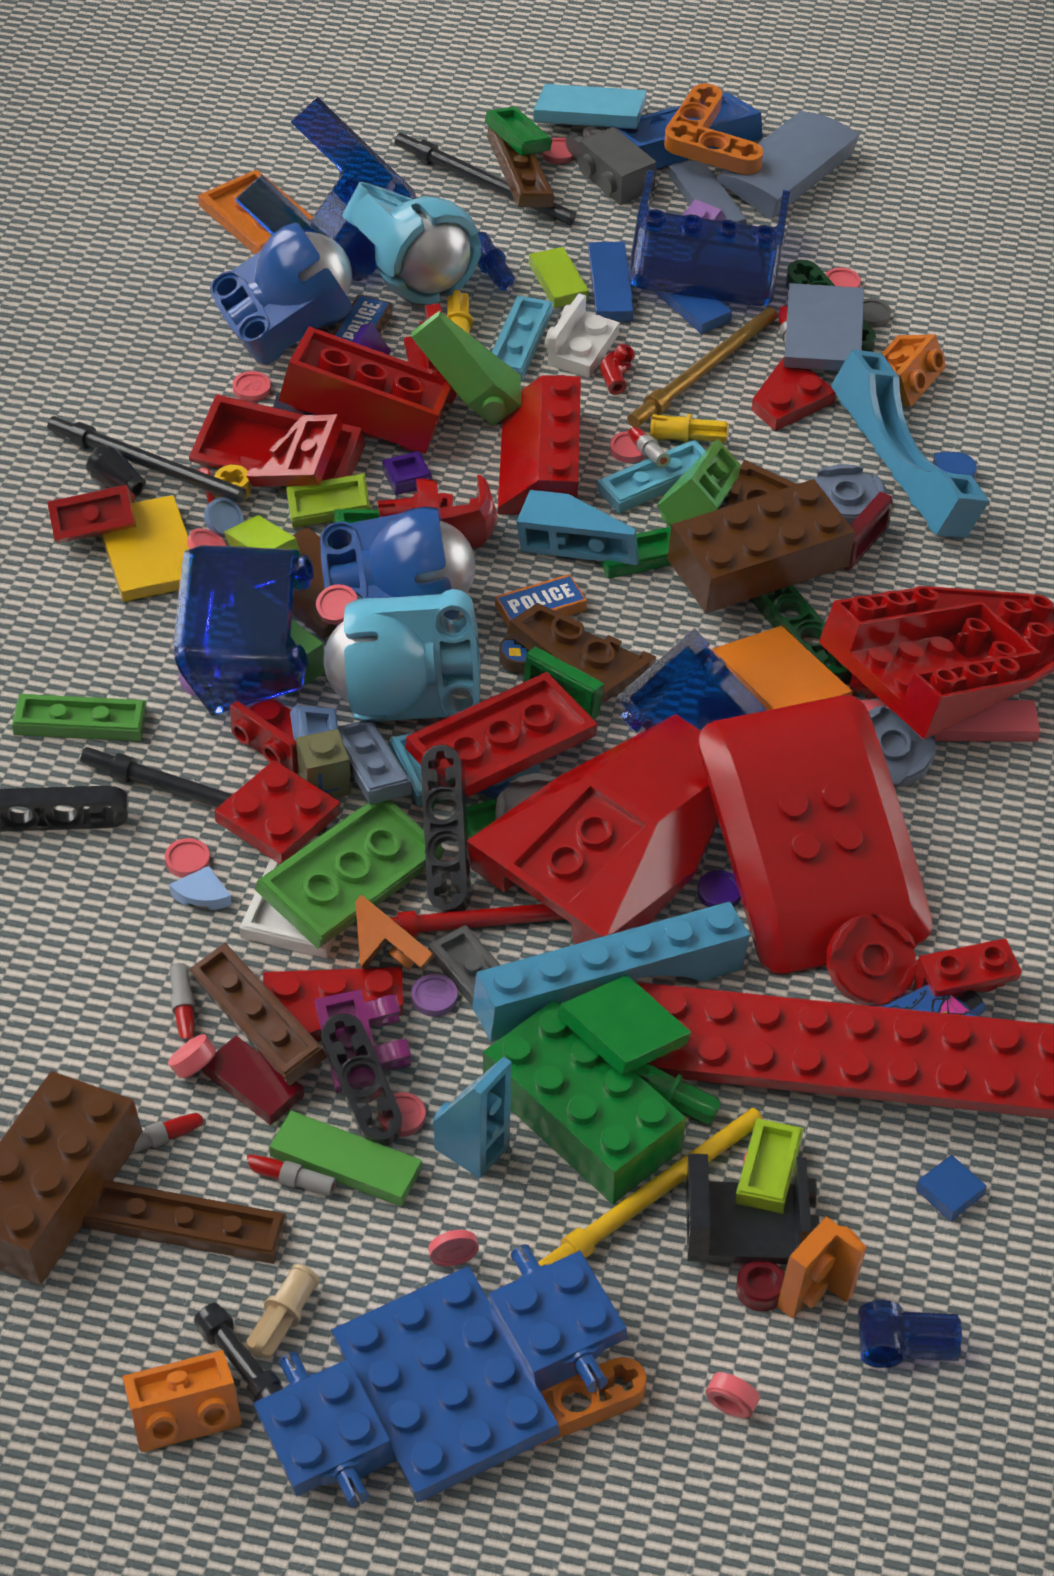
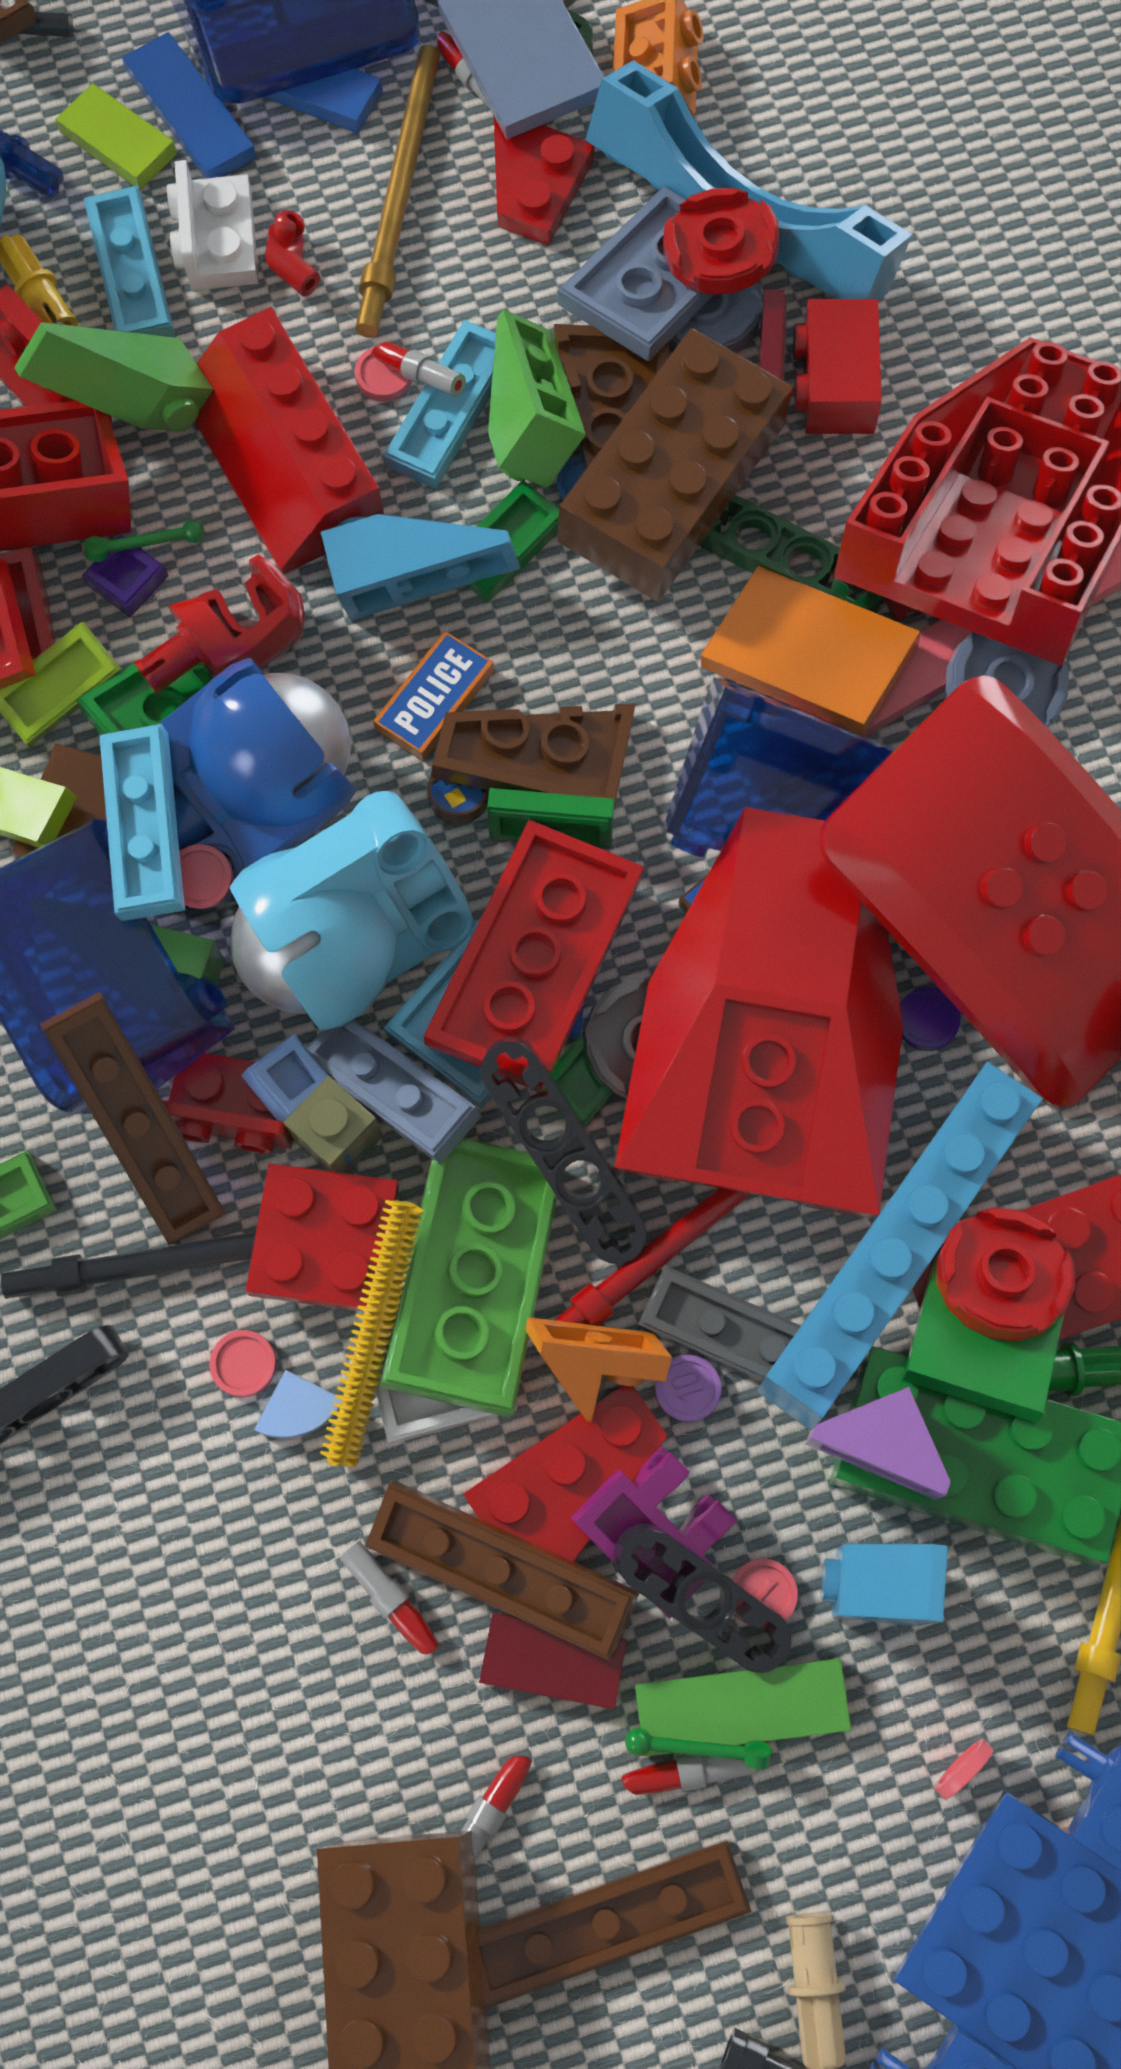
camera: 25 degrees left, 25 degrees up
(192, 1056) = (461, 1682): coral tile -> none
(214, 694) = (133, 1117): none -> reddish brown tile
(268, 859) = (373, 1333): none -> yellow axle
(271, 1134) = (754, 1754): none -> green hinge
(322, 555) = (141, 823): none -> medium azure tile
(400, 448) = (97, 548): none -> green hinge
(517, 1025) = (887, 1441): none -> medium lavender slope
(658, 998) = (1005, 1274): none -> red tile
(687, 428) = (448, 307): yellow axle -> none
(832, 457) = (629, 286): none -> sand blue tile
(870, 457) = (721, 241): none -> red tile
(904, 551) = (840, 366): none -> red brick
(955, 463) = (812, 186): blue tile -> none

